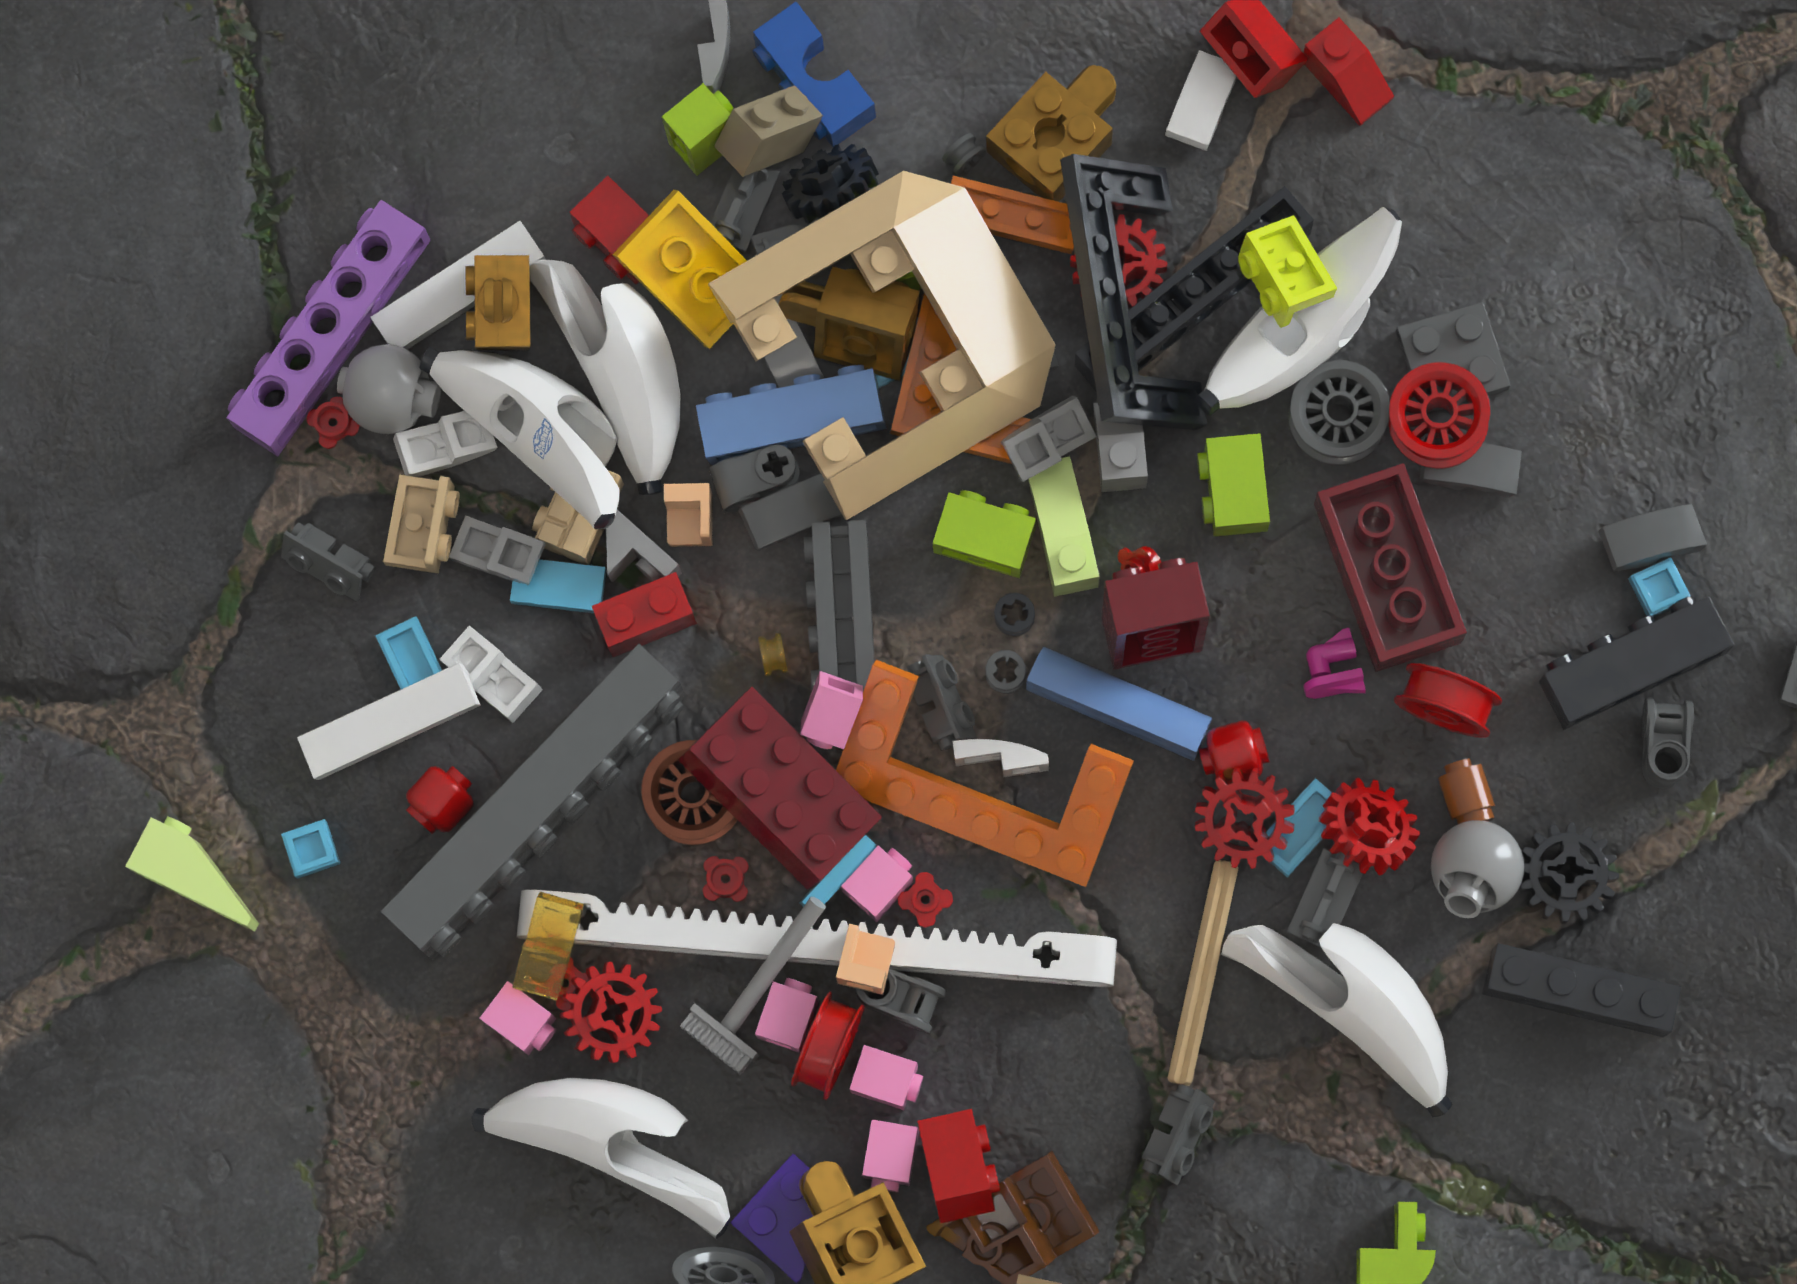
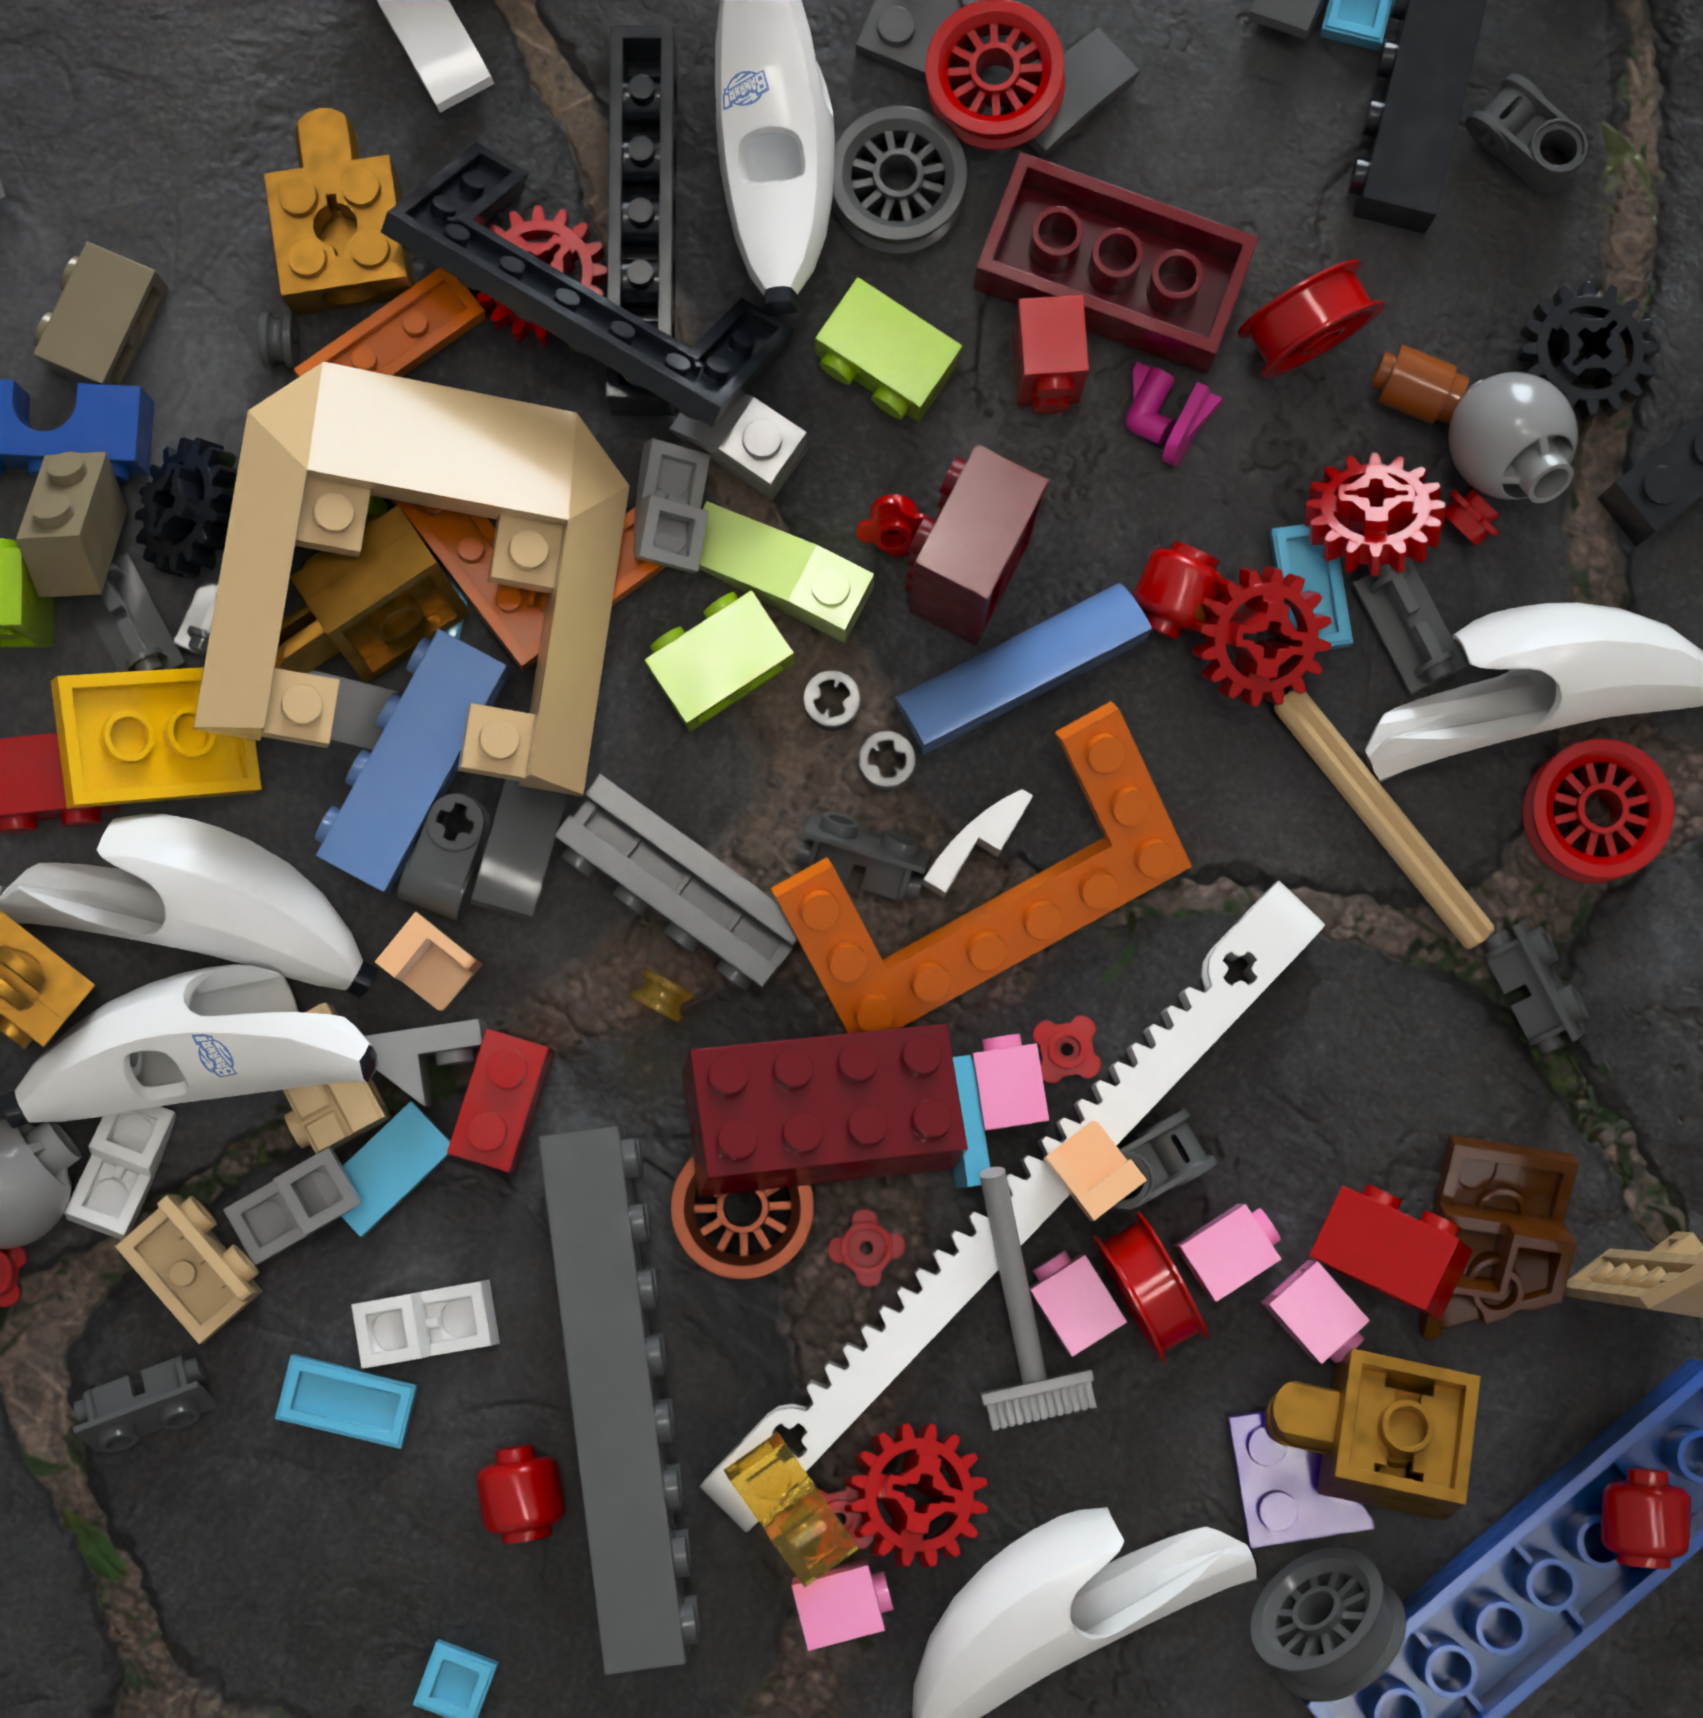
camera: 60 degrees left, 5 degrees up
(388, 721) = (386, 1482): white tile -> none
(831, 711) = (786, 984): bright pink brick -> none
(895, 51) = (99, 317): none -> dark tan brick
(1284, 269) = (709, 96): neon yellow bracket -> none
(1305, 572) = (1050, 353): none -> red brick
(1347, 1094) = (1614, 757): none -> red wheel
(1416, 883) = (1472, 516): none -> red plate

